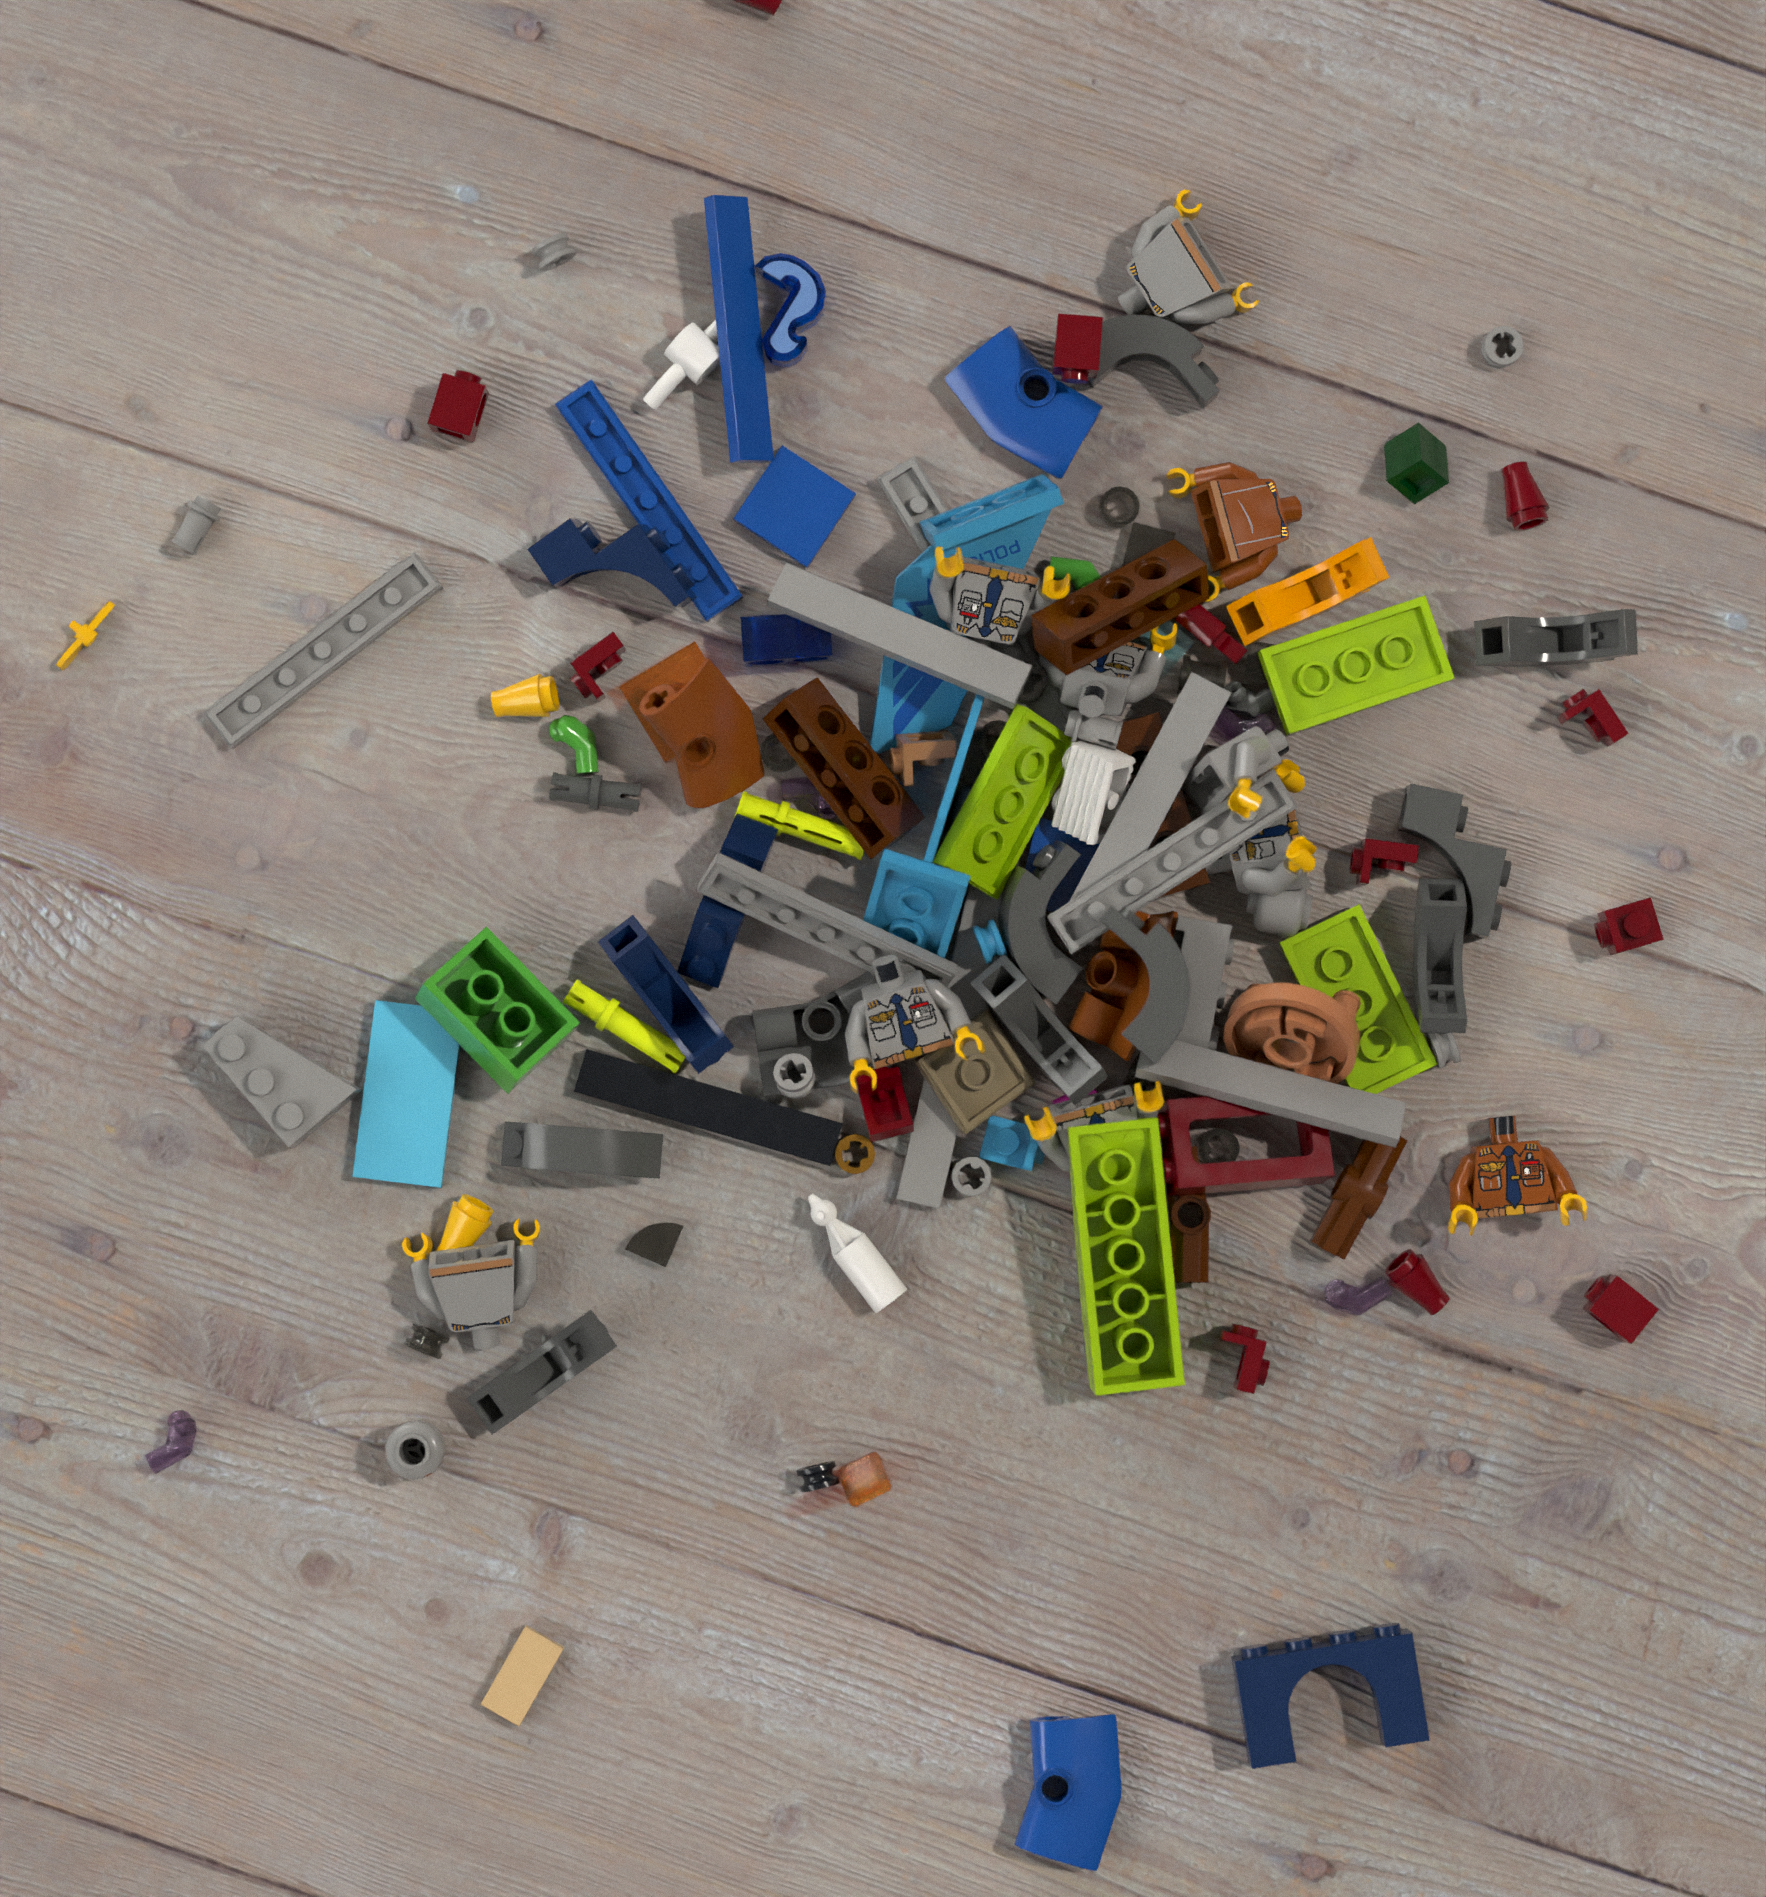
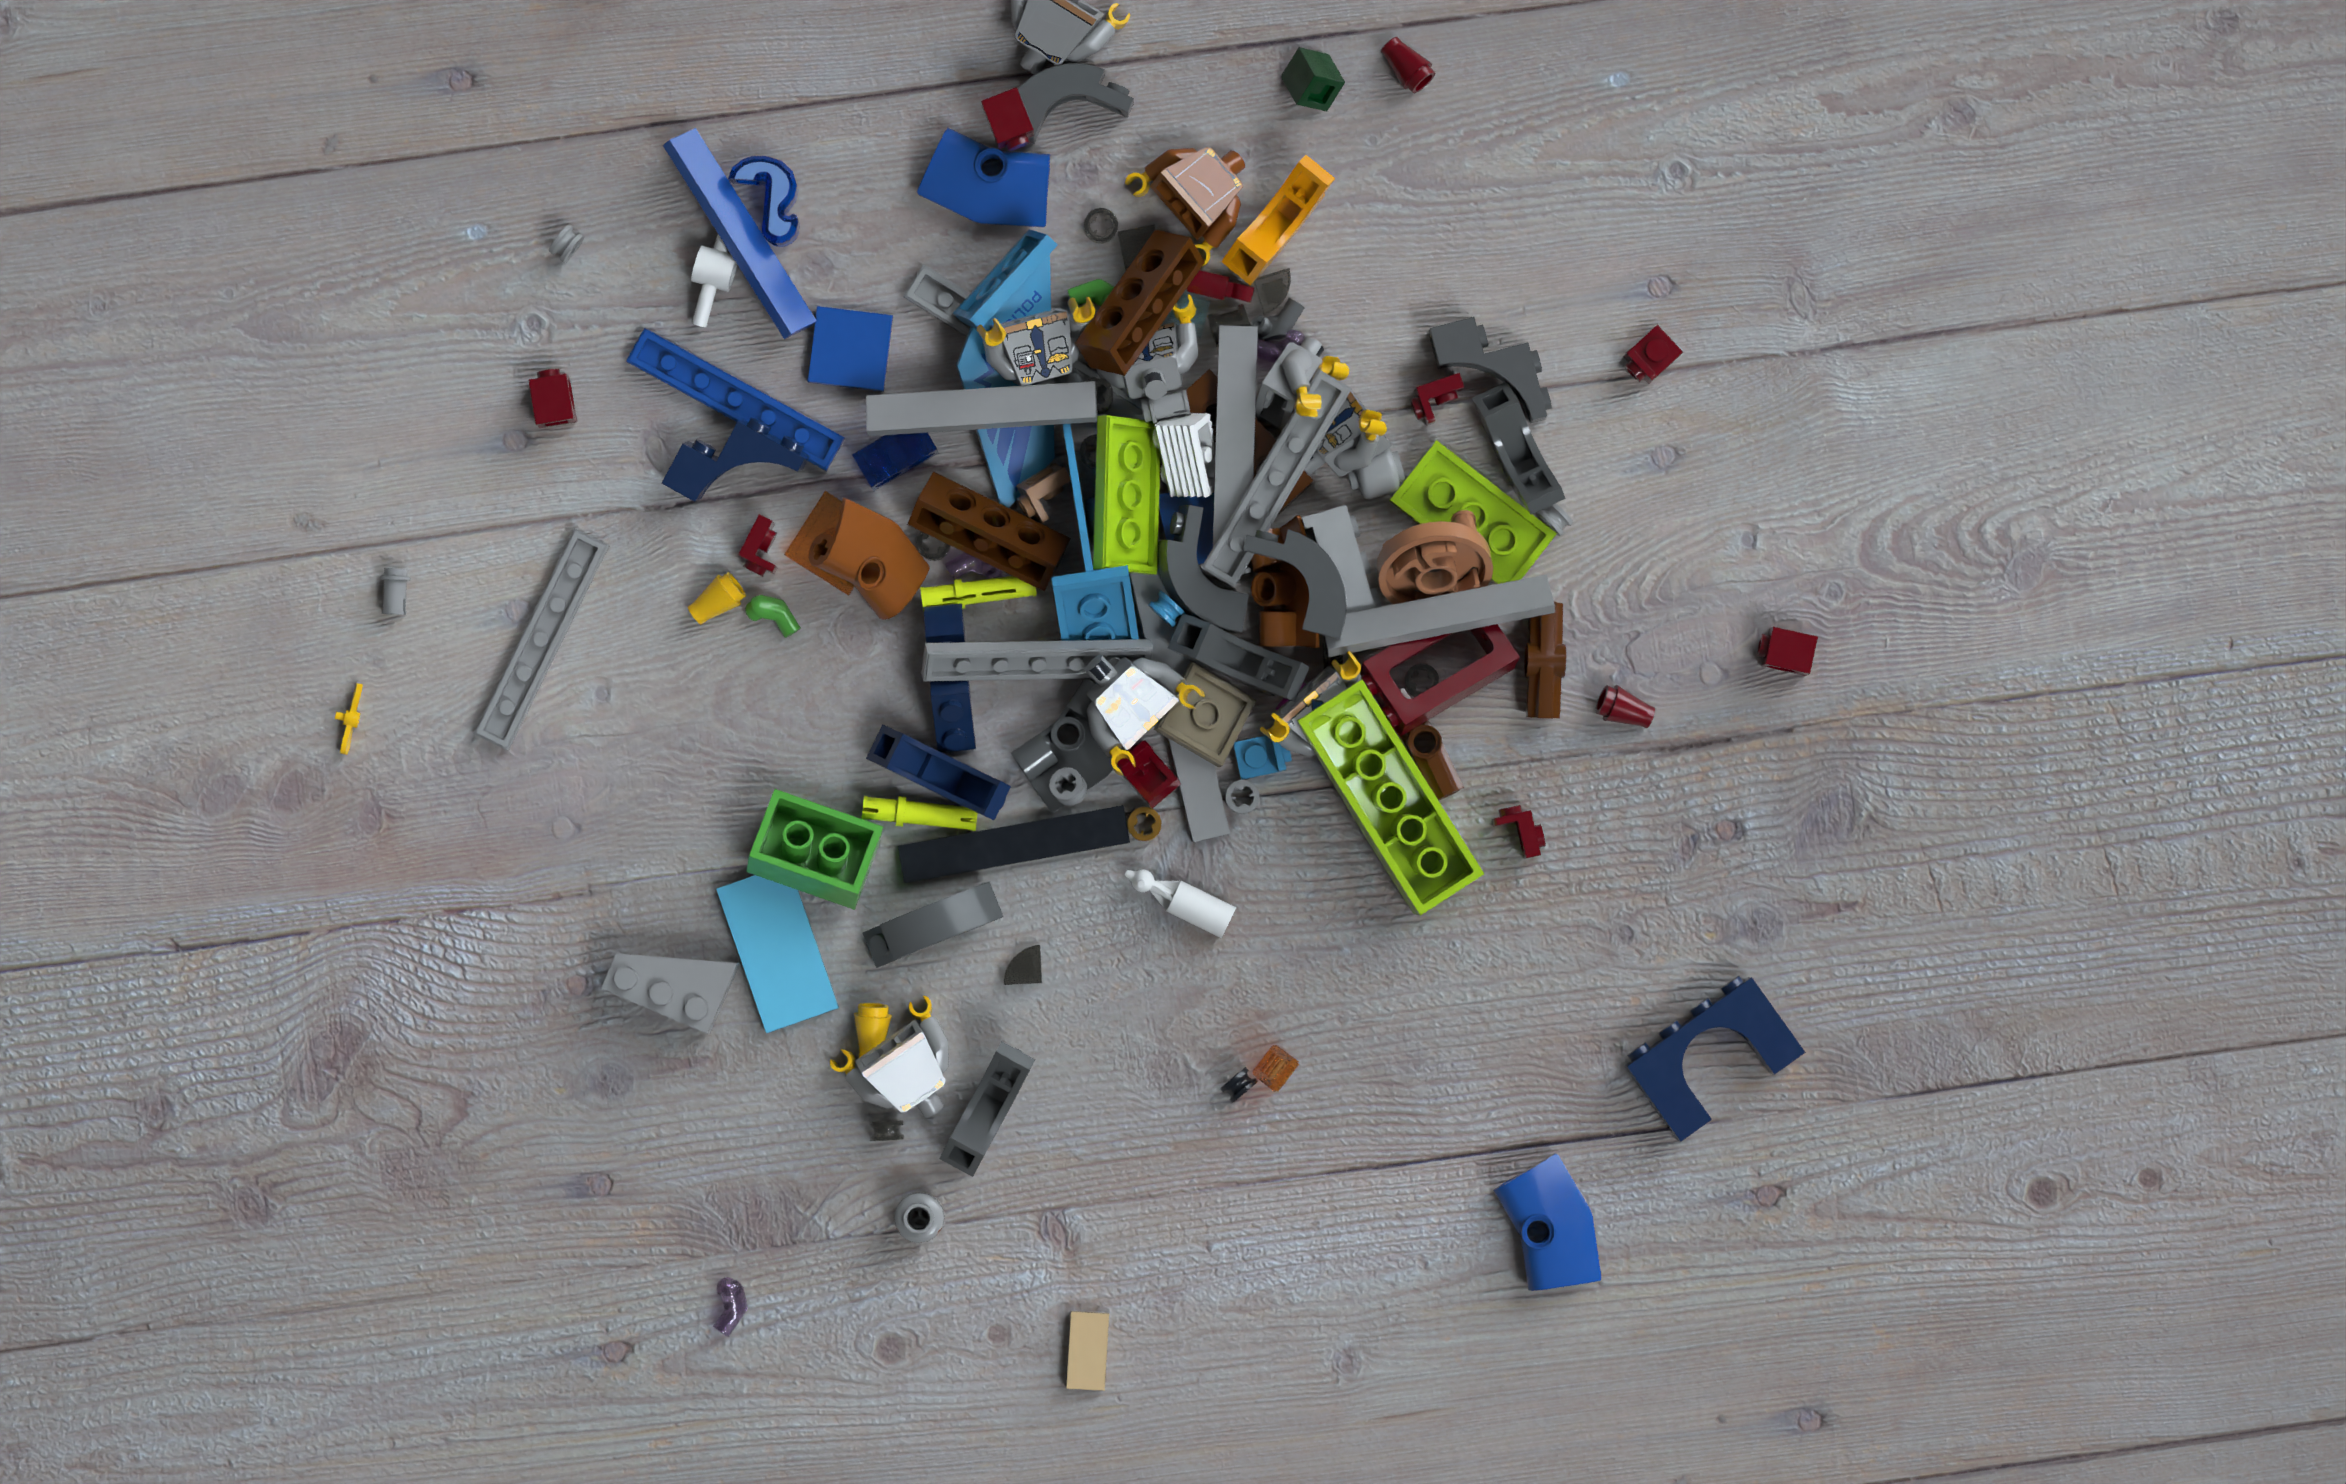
camera: 30 degrees left, 0 degrees up
(595, 792) = (806, 644): dark grey pin -> none
(1355, 665) = (1343, 258): lime plate -> none
(1355, 1299) = (1582, 745): clear purple arm -> none
(1510, 1180) = (1656, 594): torso -> none
(1555, 640) = (1486, 163): dark grey arch -> none
(1601, 720) = (1552, 206): dark red bracket -> none

